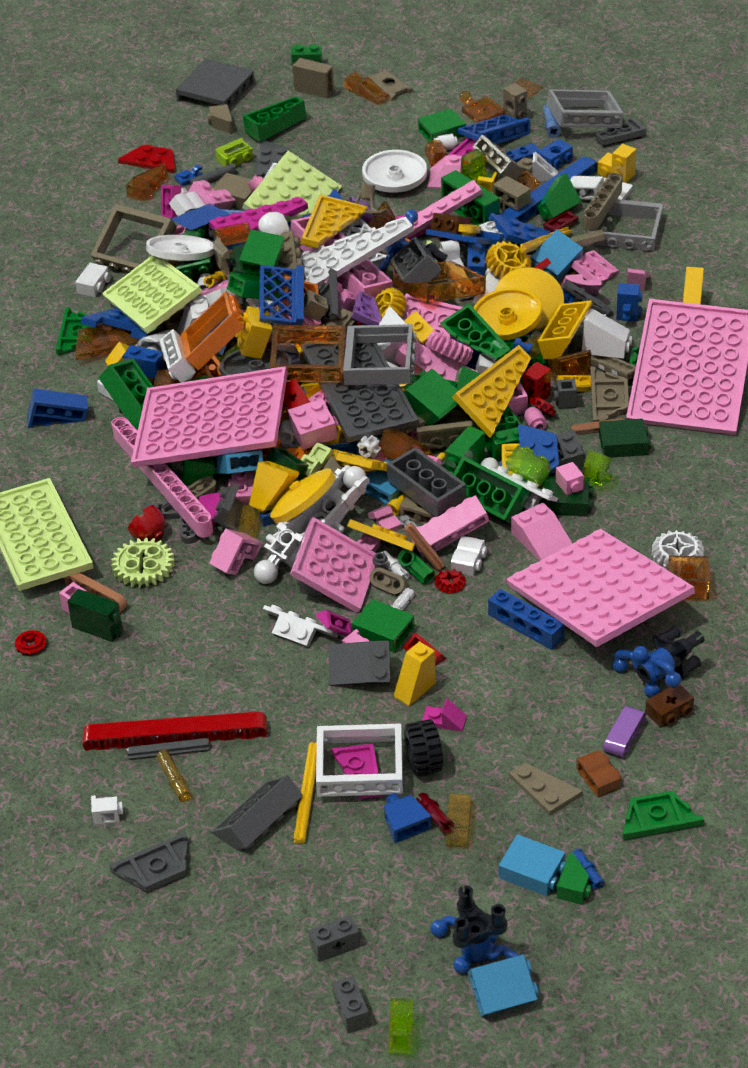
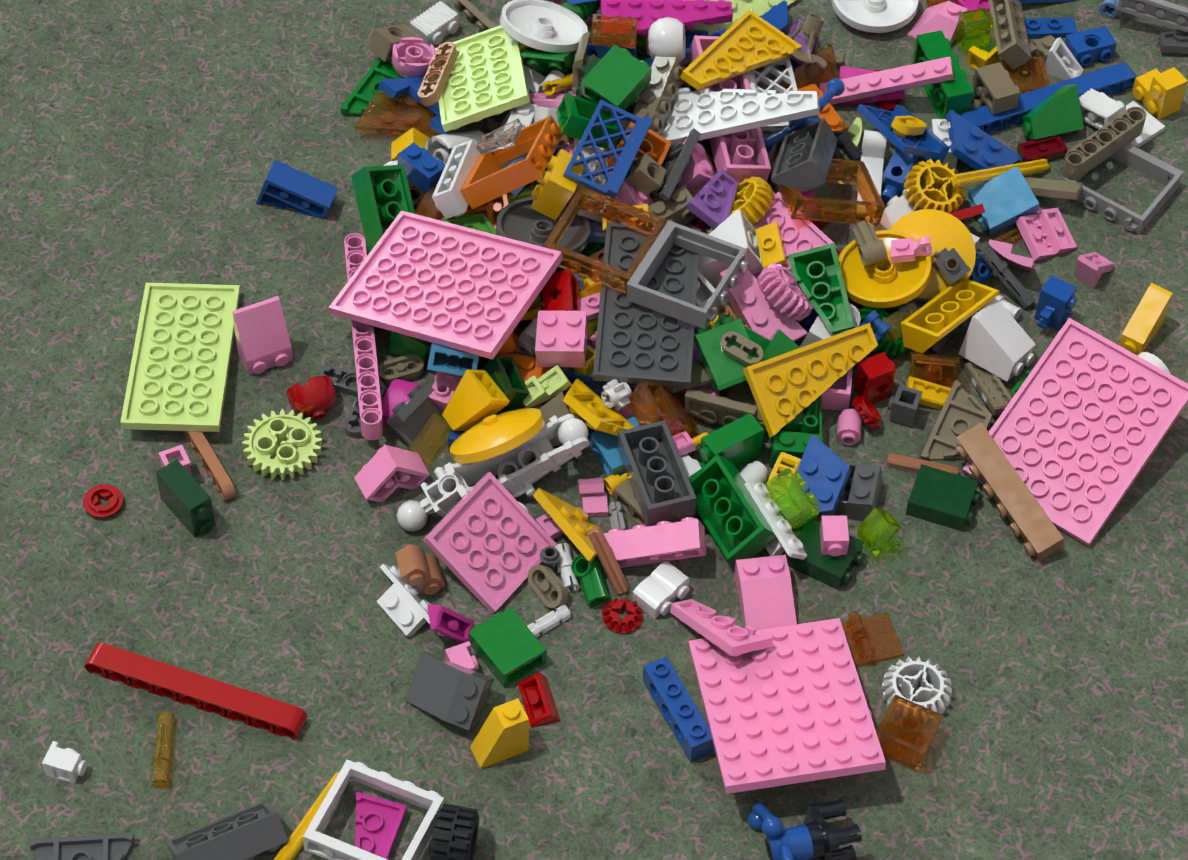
camera: 20 degrees right, 10 degrees up
(71, 297) = (385, 37): none -> dark tan brick
(90, 498) = (262, 336): none -> bright pink slope
(93, 301) = (412, 57): none -> bright pink cylinder
(119, 302) = (437, 73): none -> nougat beam
(172, 747) = (180, 710): dark grey axle -> none
(194, 319) = (500, 138): none -> clear wing
(294, 599) = (420, 569): none -> nougat brick
(443, 386) = (744, 345): none -> dark tan beam
(448, 222) = (892, 102): reddish brown brick -> none
(448, 717) = (511, 803): dark pink slope -> none
(490, 301) = (869, 246): none -> dark tan piece
(516, 295) = (907, 249): none -> bright pink plate
(526, 561) = (720, 629): none -> bright pink wing
(550, 298) = (948, 274): none -> dark grey brick
(629, 532) = (871, 638): none -> clear orange hinge
(667, 417) = (1010, 492): none -> medium nougat brick

